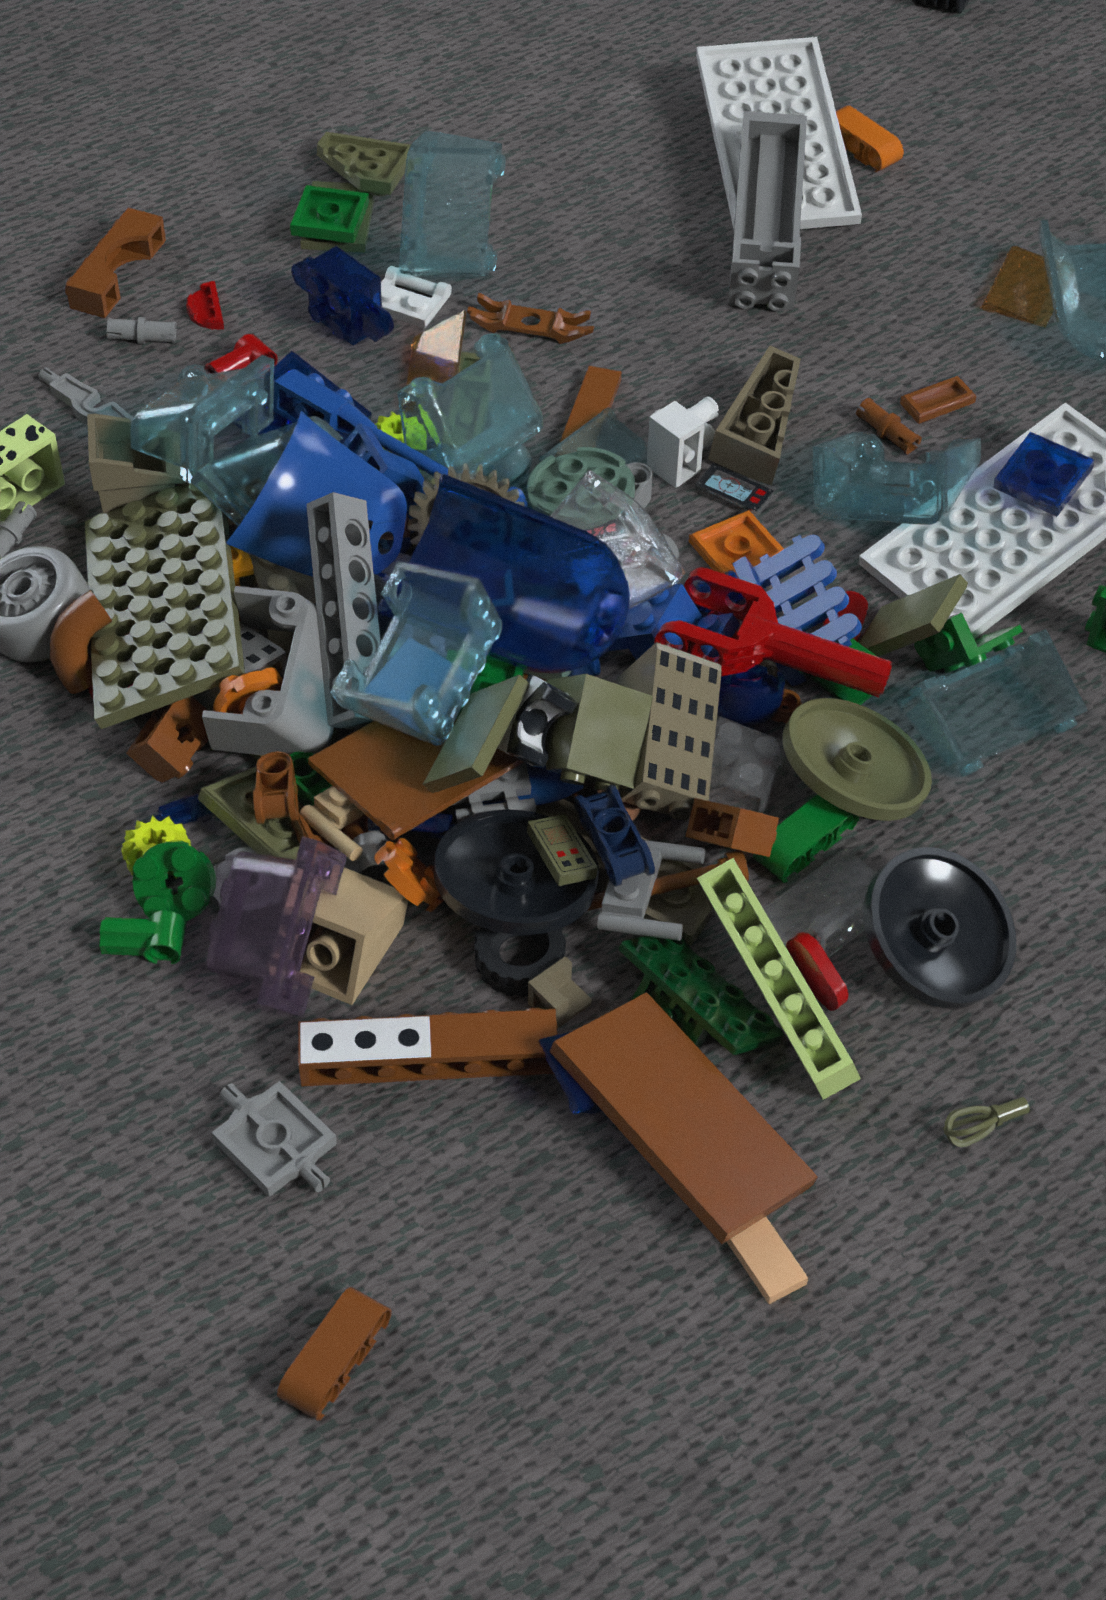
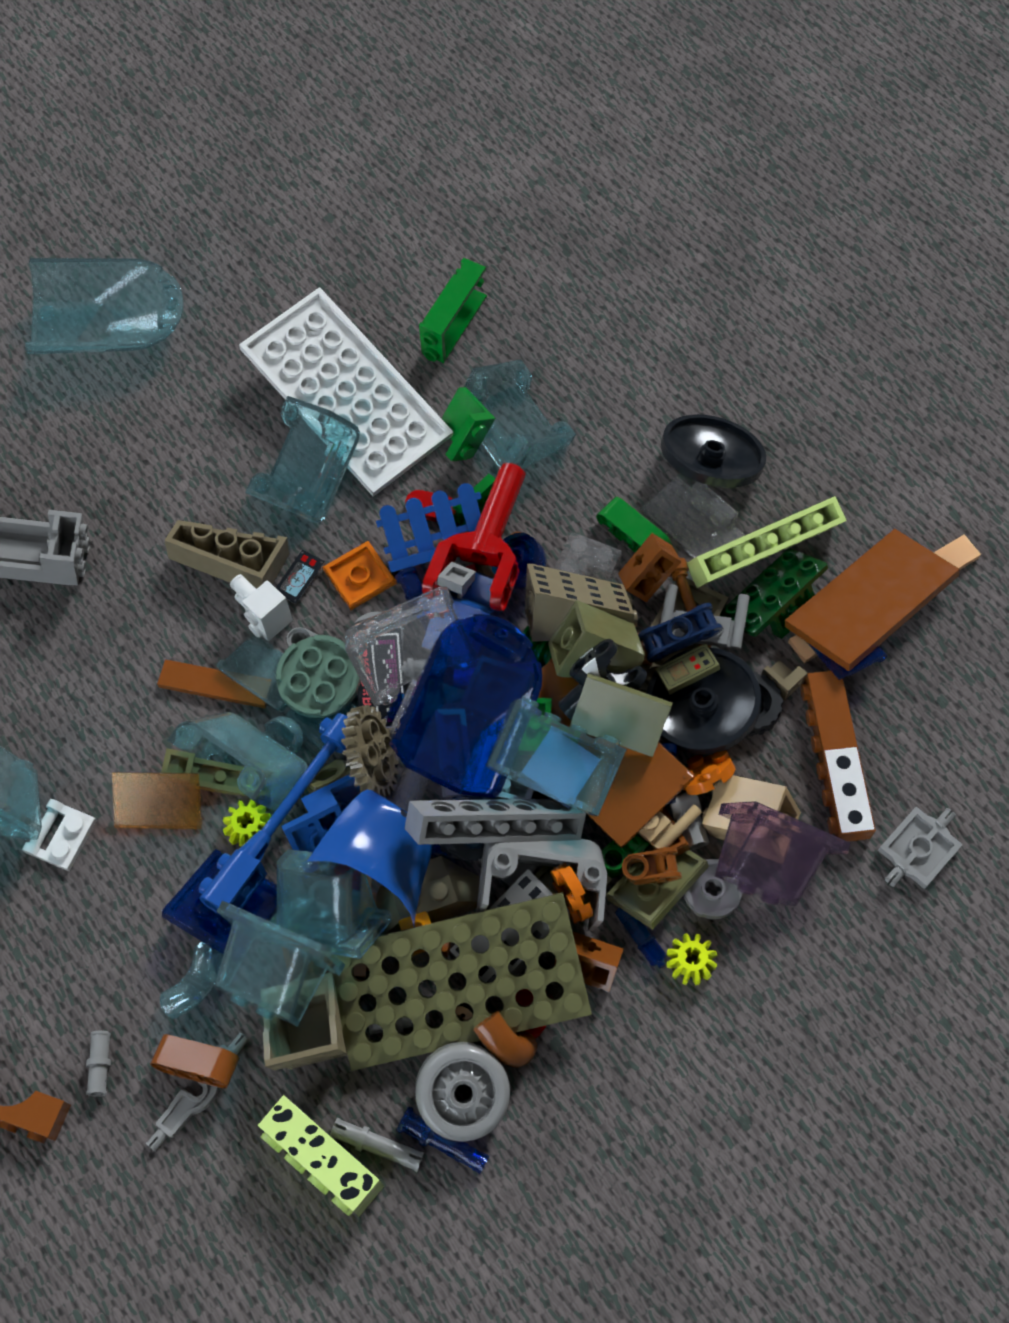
camera: 90 degrees left, 15 degrees up
(122, 390) = (195, 1061): none -> beam
(153, 938) = (770, 953): green piece -> none
(185, 862) = (736, 924): green plate -> none
(205, 308) = (63, 1012): red tile -> none
(245, 352) = (143, 962): red piece -> none
(343, 296) = (77, 880): clear blue brick -> none
(505, 316) = (98, 748): dark orange piece -> none
(705, 603) = (456, 578): none -> light grey tile
(818, 971) = (751, 522): red tile -> none
(856, 759) = (575, 495): olive dish -> none
(888, 426) = (231, 471): dark orange pin -> none
(913, 616) = (451, 453): olive tile -> none
(938, 399) = (198, 439): dark orange tile -> none
(995, 1117) = (834, 434): olive piece -> none
(1021, 289) = (69, 376): clear orange piece -> none
(1043, 474) = (315, 362): clear blue plate -> none

